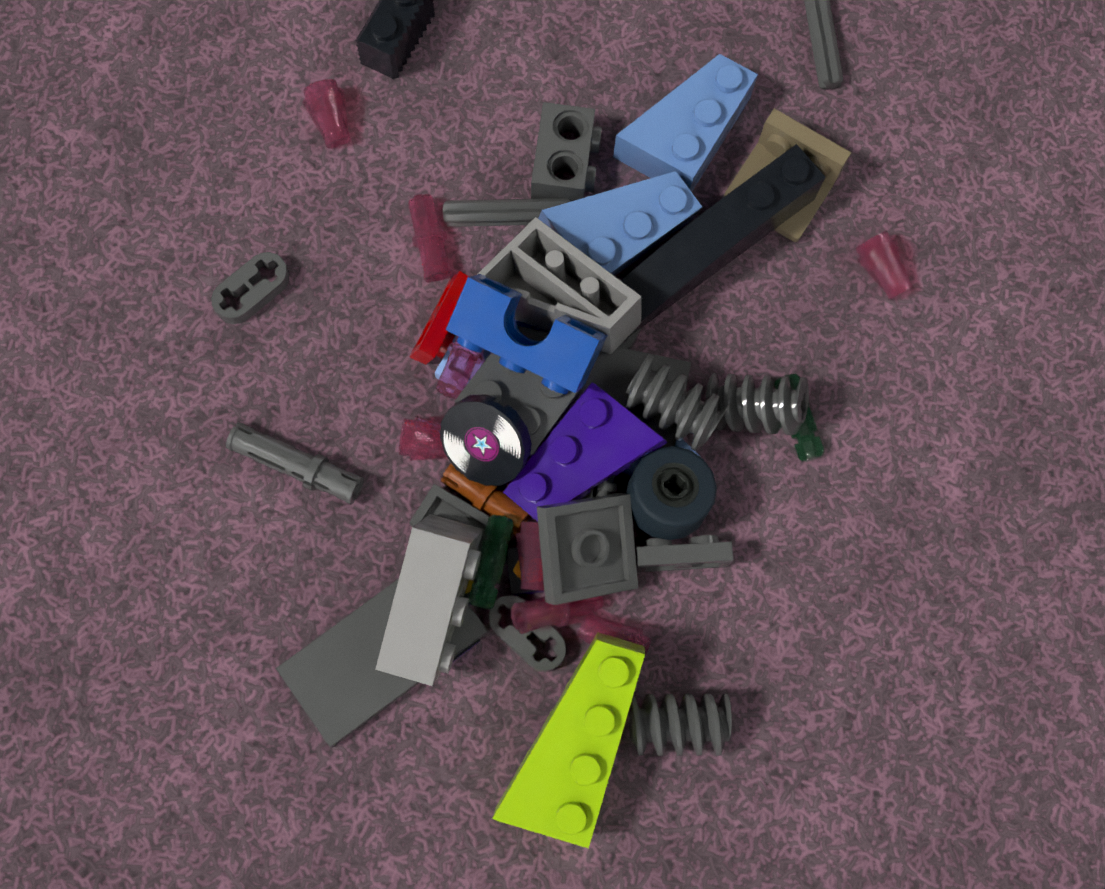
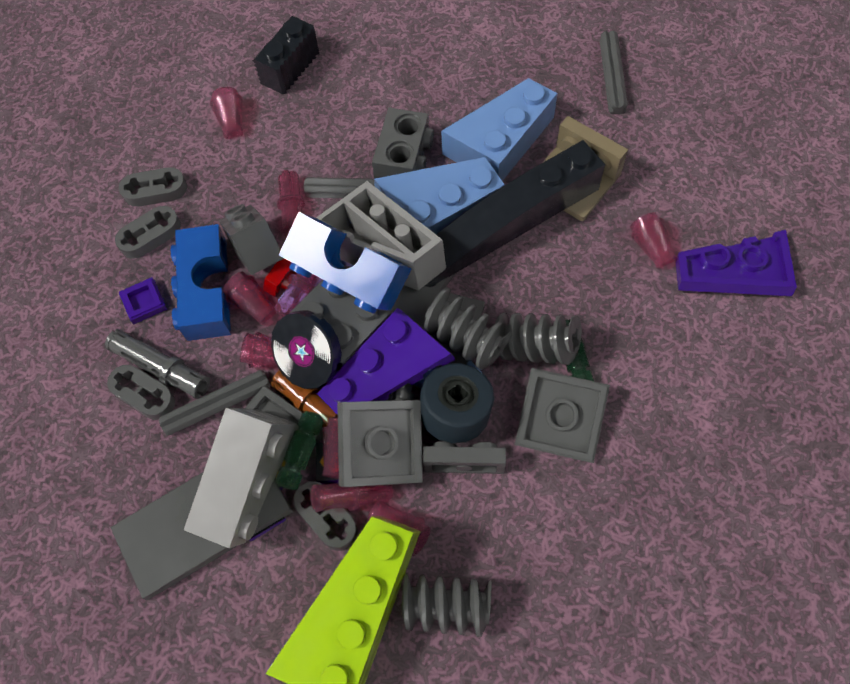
camera: 15 degrees right, 10 degrees down
(243, 214) = (153, 186): none -> dark grey beam
(260, 381) = (142, 300): none -> dark purple tile
(275, 509) = (145, 384): none -> dark grey beam
(324, 317) = (196, 256): none -> blue arch
(373, 507) = (213, 403): none -> dark grey axle
(393, 297) = (250, 238): none -> dark grey brick
(397, 370) = (247, 295): none -> clear pink cone
(790, 494) = (562, 415): none -> dark grey plate
(994, 294) = (743, 268): none -> dark purple wing

